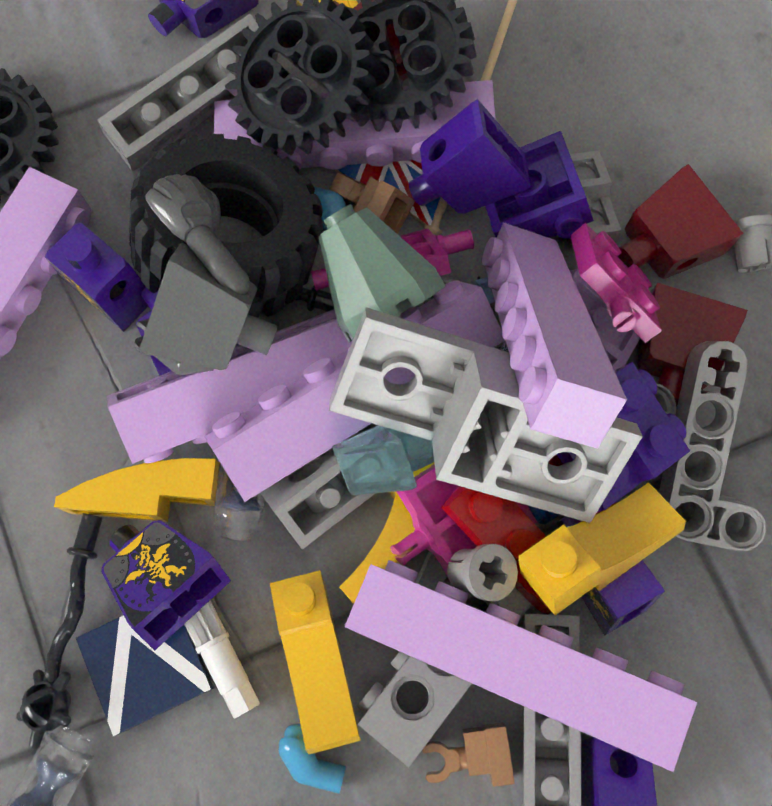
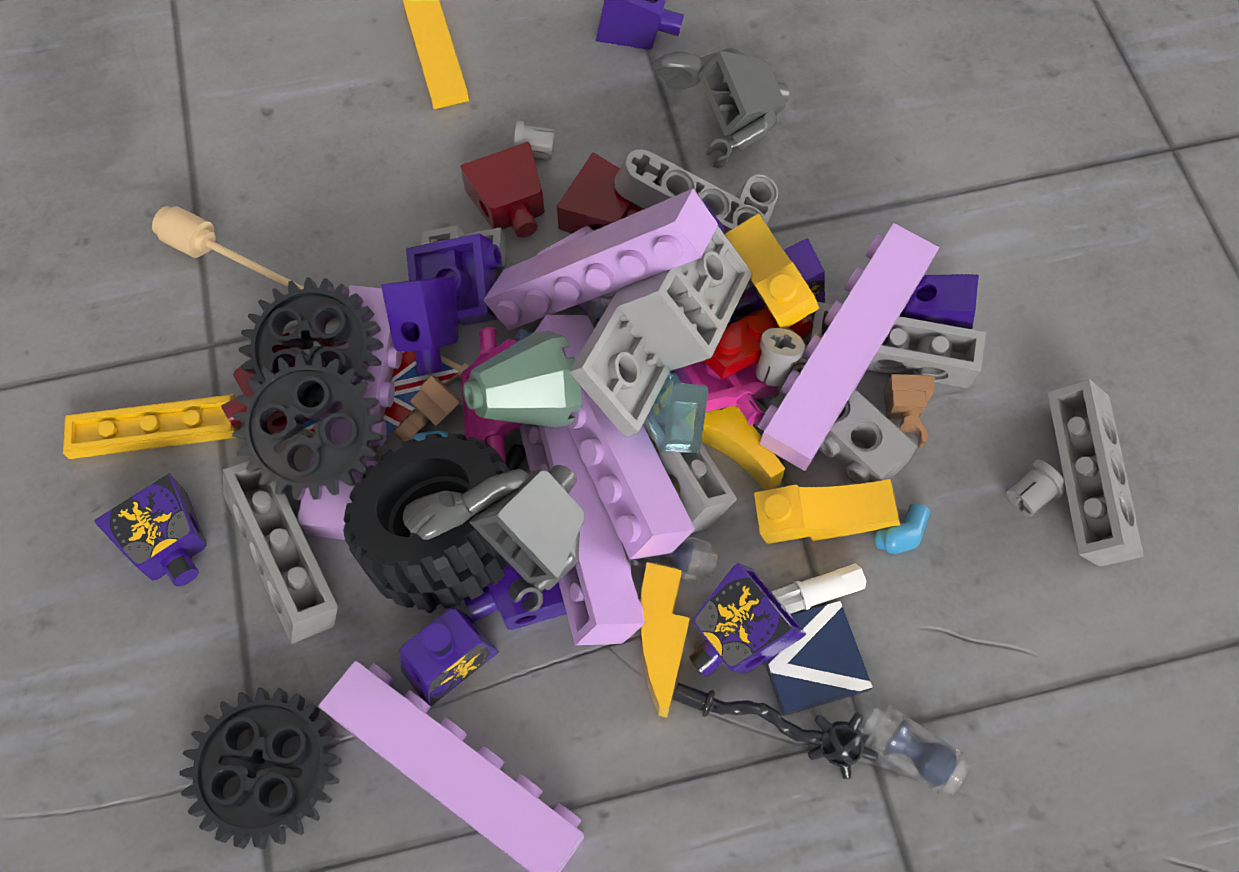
camera: 80 degrees left, 10 degrees down
(619, 286) = (553, 227): dark pink plate -> none

